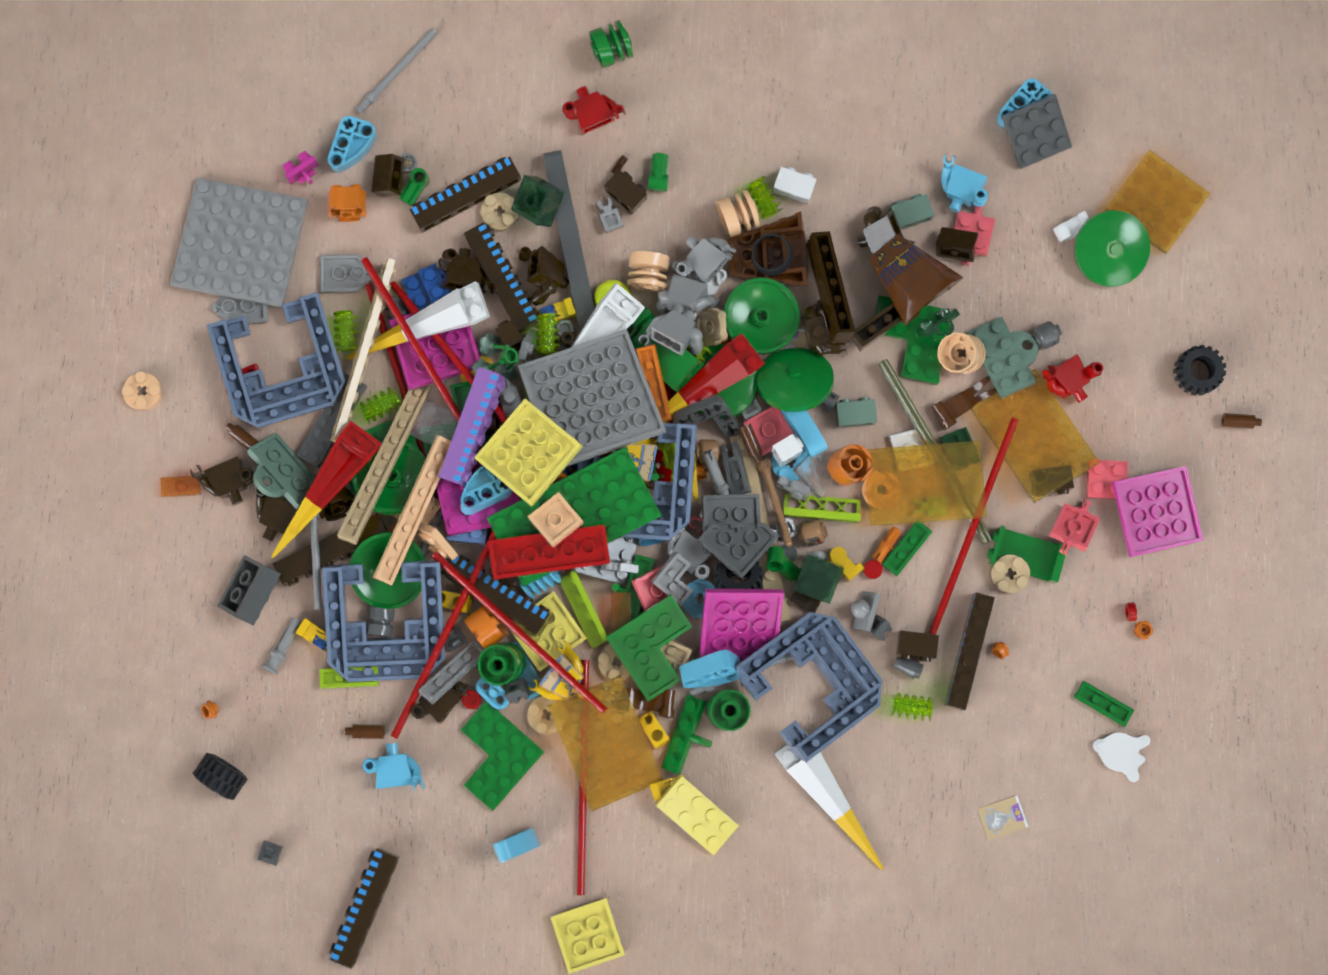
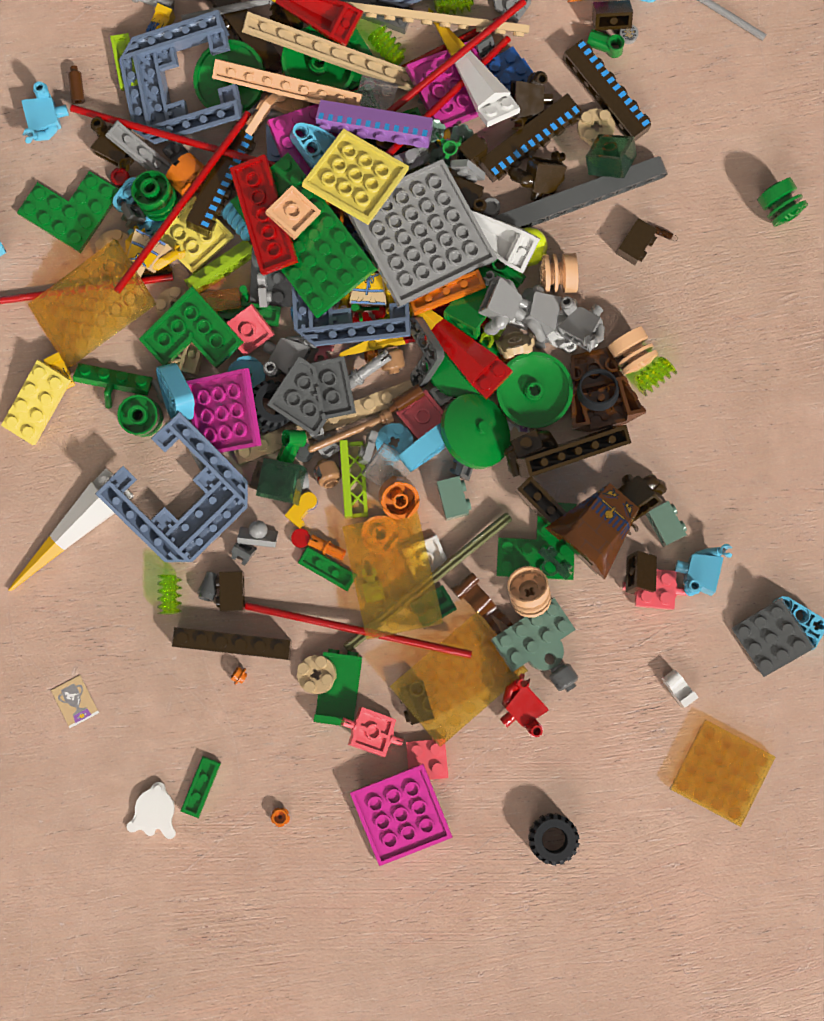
camera: 80 degrees right, 0 degrees up
(380, 622) = (179, 80): dark grey wheel -> none
(450, 599) = (211, 136): yellow leg -> none
(546, 333) = (480, 184): clear neon green piece -> none
(564, 309) = (505, 195): yellow leg -> none
(592, 110) = (712, 195): red torso -> none
(610, 218) = (608, 232): light grey plate -> none
(654, 730) = (113, 350): yellow leg -> none
(658, 177) = (656, 271): green piece -> none
(662, 703) = (140, 354): reddish brown flag -> none
(668, 578) = (259, 338): light grey plate -> none
(735, 470) = (377, 387): dark grey hinge -> none
(787, 450) = (402, 431): white brick -> none
(794, 184) = (673, 404): white brick -> none
(1112, 248) = (664, 731): green dish -> none
(1131, 611) = (295, 801): red tile -> none
(1240, 421) = (508, 889): reddish brown cylinder -> none

